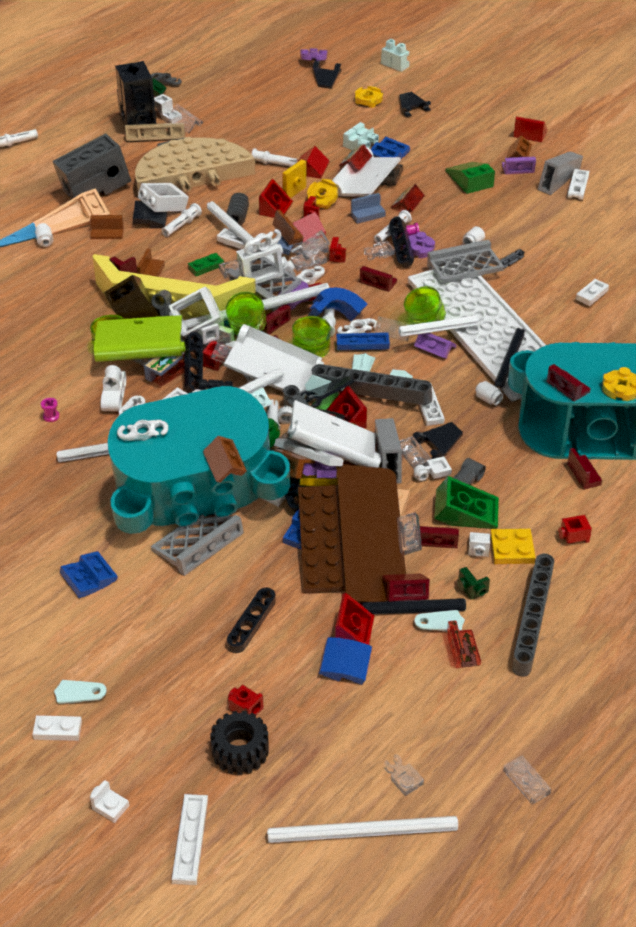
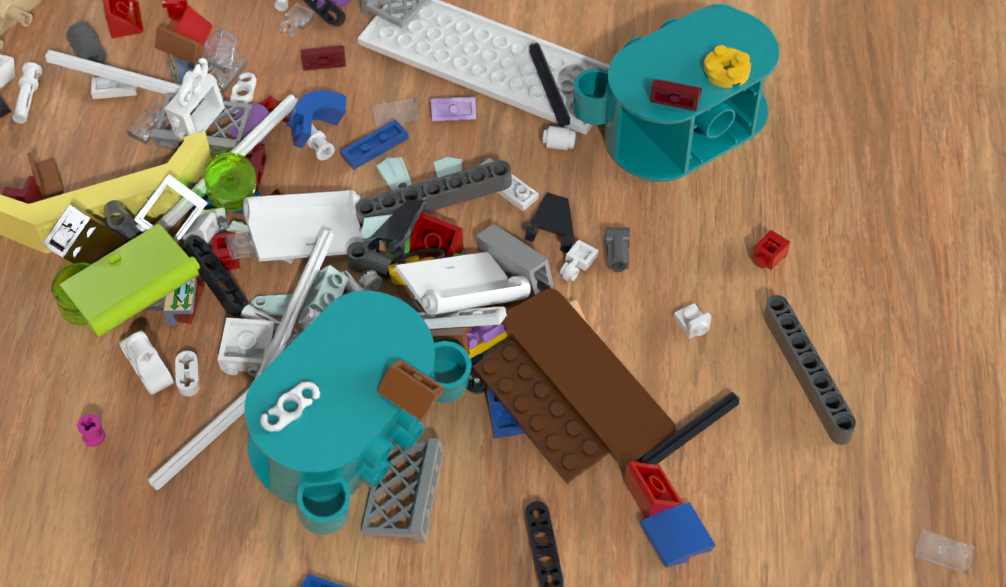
camera: 35 degrees left, 10 degrees up
(203, 383) = (259, 289): black axle -> none
(205, 264) = (107, 137): green plate -> none
(312, 335) = (319, 168): clear neon green wheel -> none
(337, 252) = (249, 47): red bracket -> none
(358, 323) = (354, 121): white piece -> none
(407, 587) = (668, 412): dark red panel -> none
(409, 533) = (626, 352): clear plate -> none
(414, 452) = (554, 253): clear plate -> none
(424, 305) = (414, 69): clear neon green wheel -> none
(438, 326) = (448, 85): white axle -> none
(438, 620) = (728, 431): light aqua piece -> none
(439, 537) = (646, 335): dark red panel -> none
(462, 646) = (771, 446): clear red panel -> none
(465, 505) = (645, 285): green slope -> none
(472, 586) = (725, 373): dark green bracket -> none
(512, 546) = (725, 303): yellow plate -> none
(583, 470) = (720, 178): dark red panel -> none

